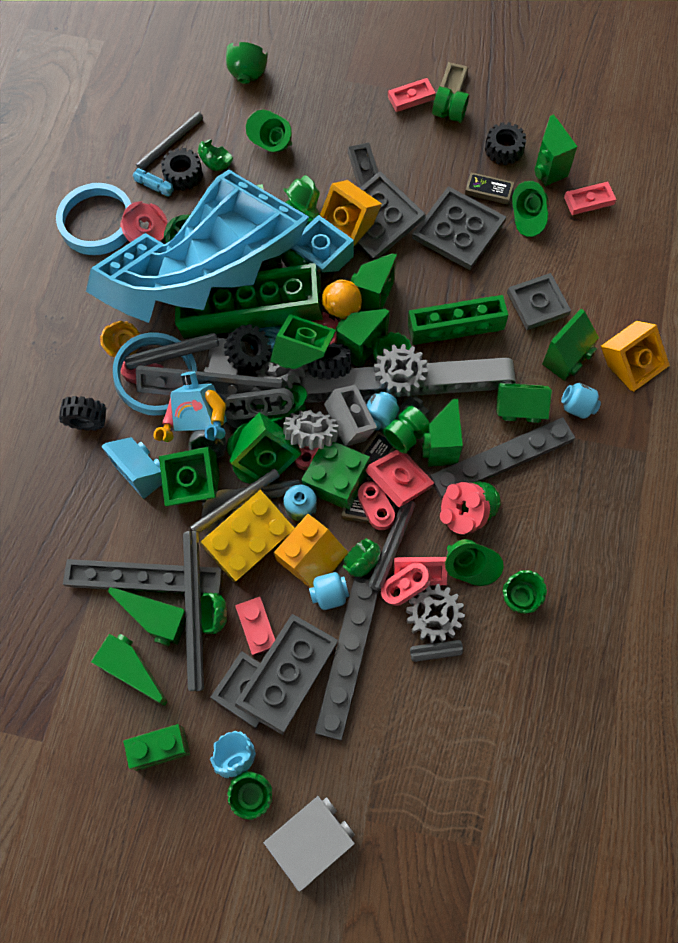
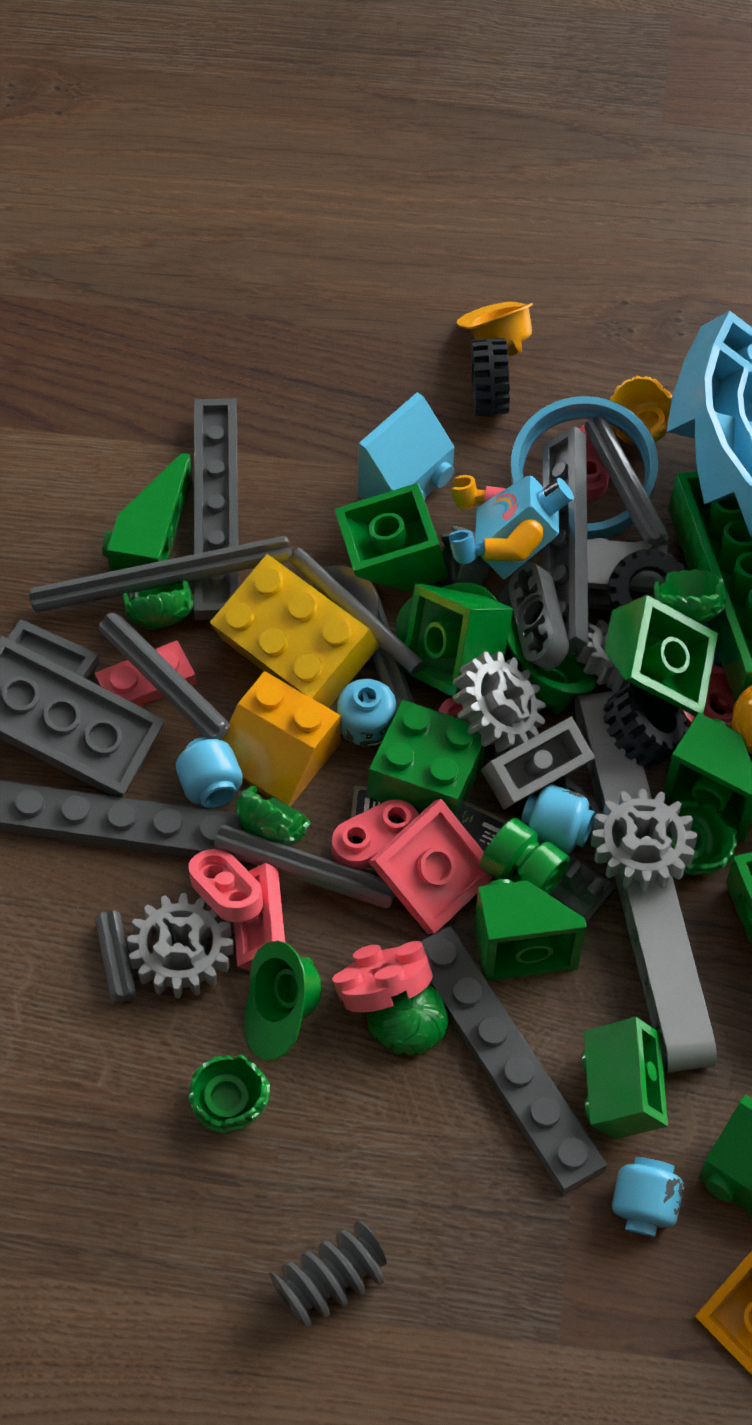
camera: 80 degrees right, 10 degrees down
(40, 406) = (500, 320): none -> light orange piece
(126, 664) = (64, 507): green slope -> none
(265, 322) = (693, 593): none -> green hair
(266, 611) = (163, 676): none -> dark grey axle
(622, 548) = (331, 1273): none -> dark grey piece

